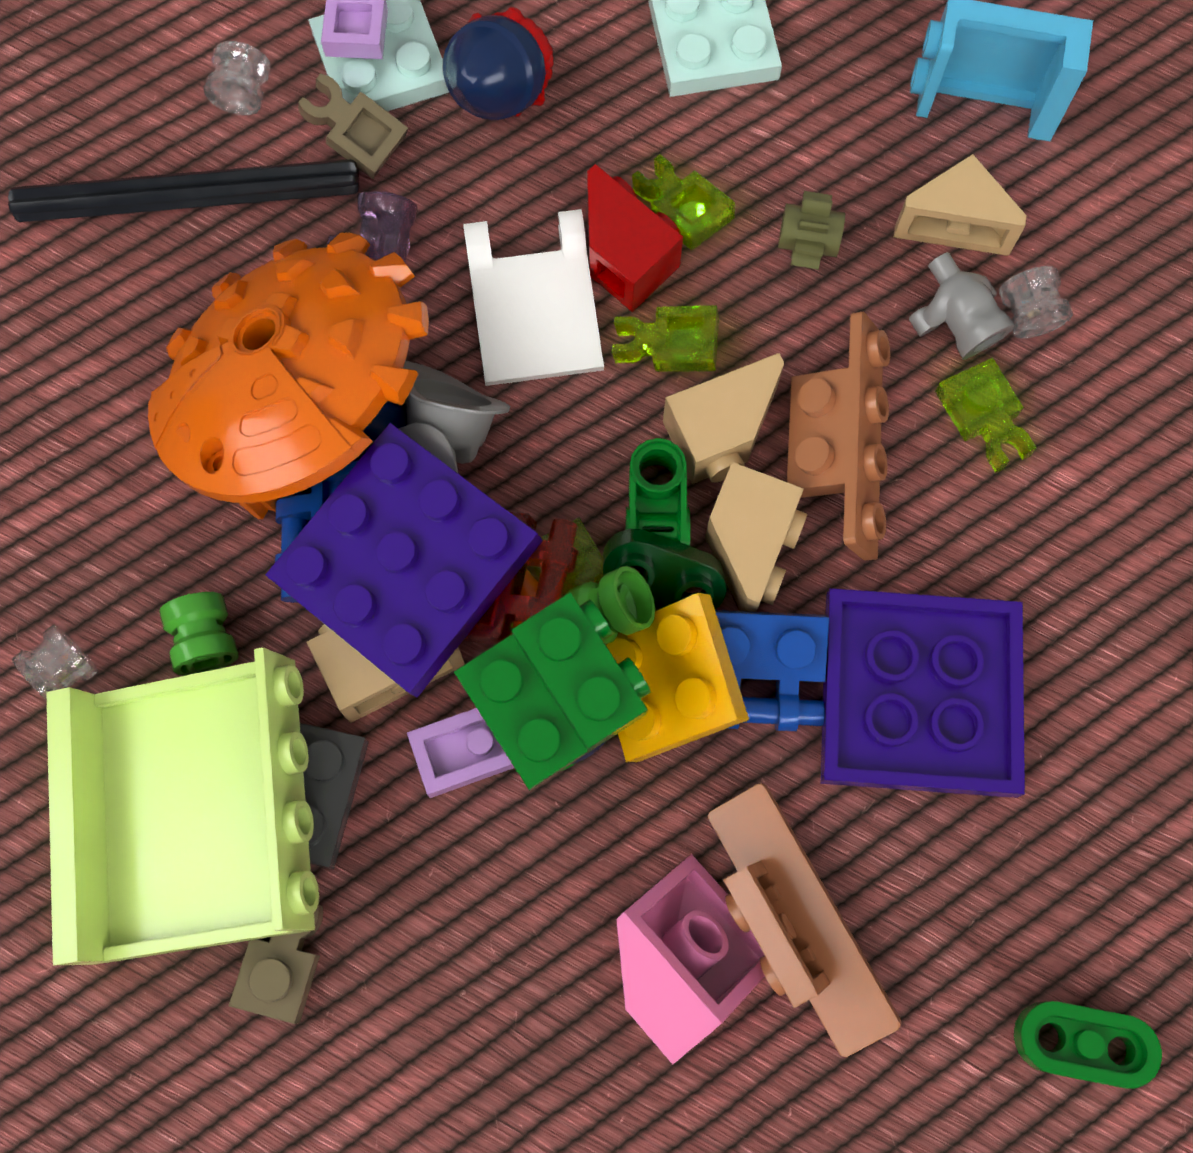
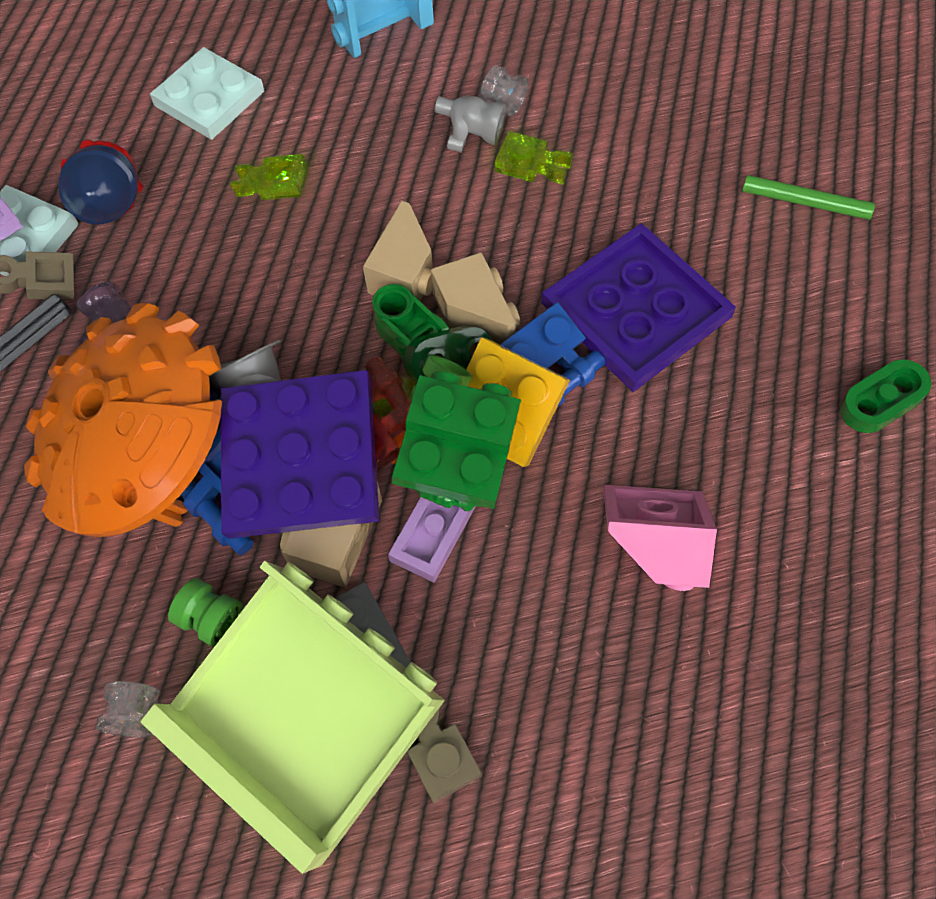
camera: 40 degrees left, 10 degrees down
(535, 308) = (239, 290): white flag -> none
(628, 242) = (258, 216): red slope -> none
(678, 340) = (335, 241): clear neon green plate -> none
(798, 924) = (700, 462): nougat bracket -> none
(811, 230) = (357, 139): olive gear -> none
(838, 435) = (466, 224): nougat bracket -> none
(962, 211) = (425, 75): tan slope -> none

